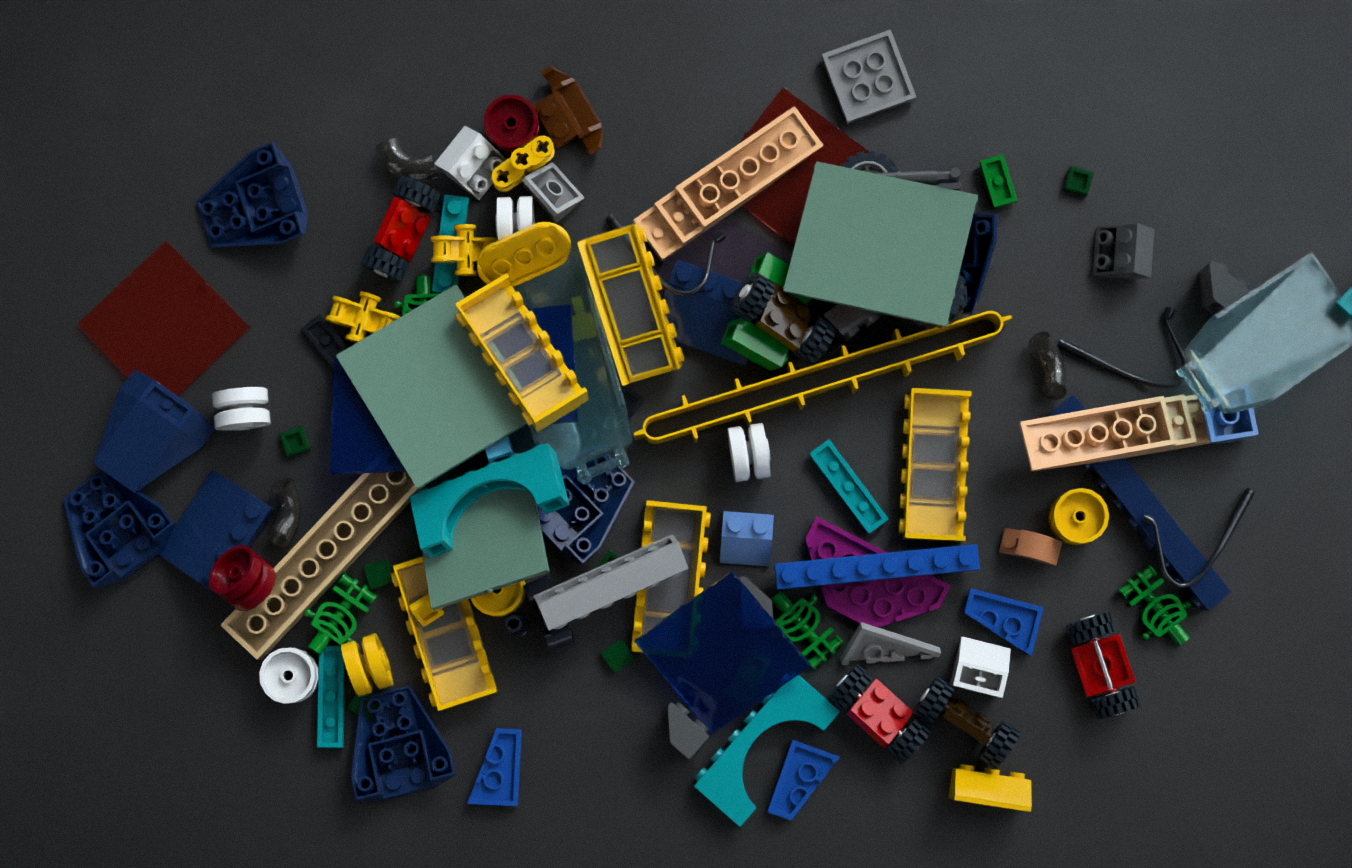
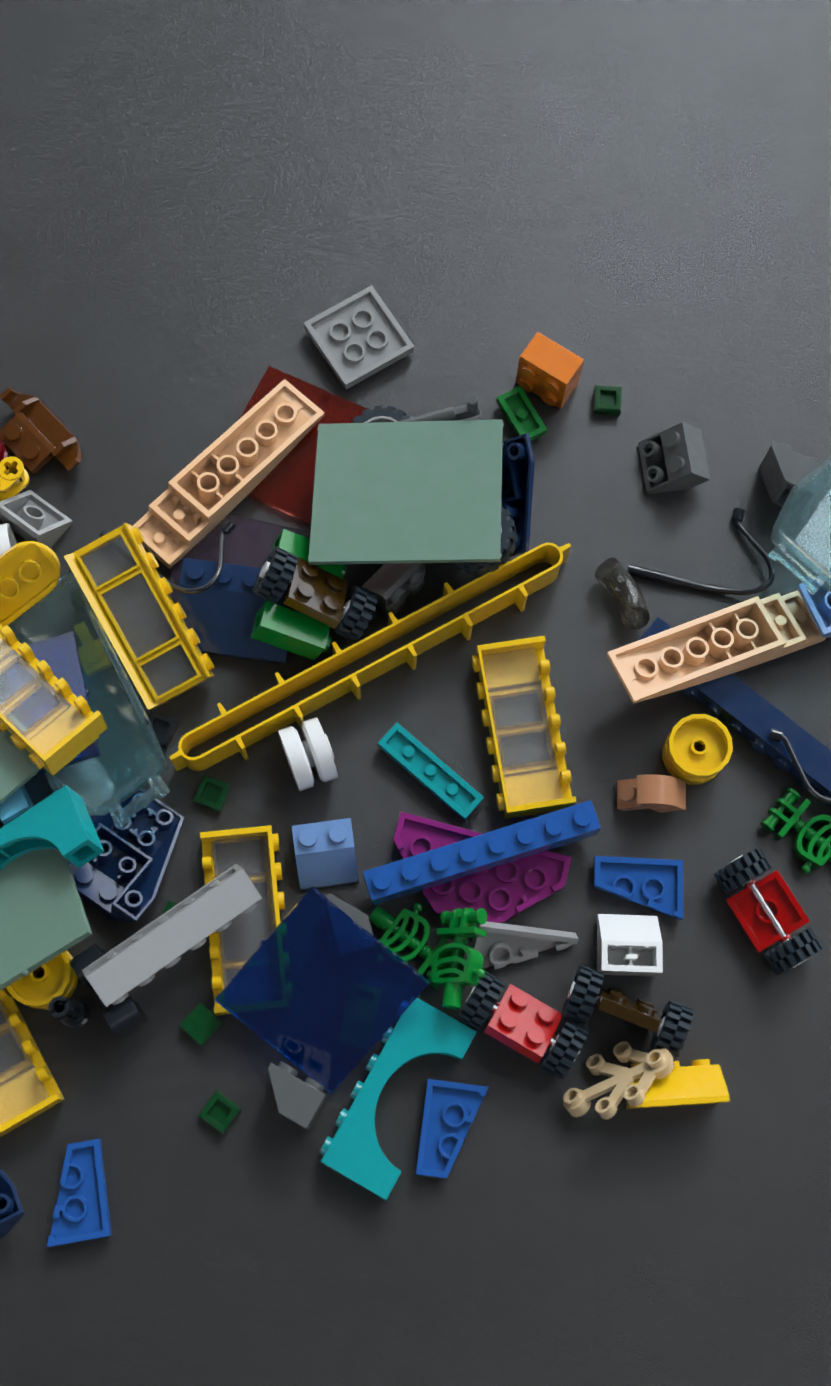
camera: 15 degrees left, 10 degrees down
(620, 729) = (219, 1112): none -> dark green tile
(661, 466) = (212, 793): none -> dark green tile
(828, 657) = (449, 958): none -> green torso
(974, 770) = (651, 1065): none -> tan plant
(1031, 147) = (549, 370): none -> orange brick

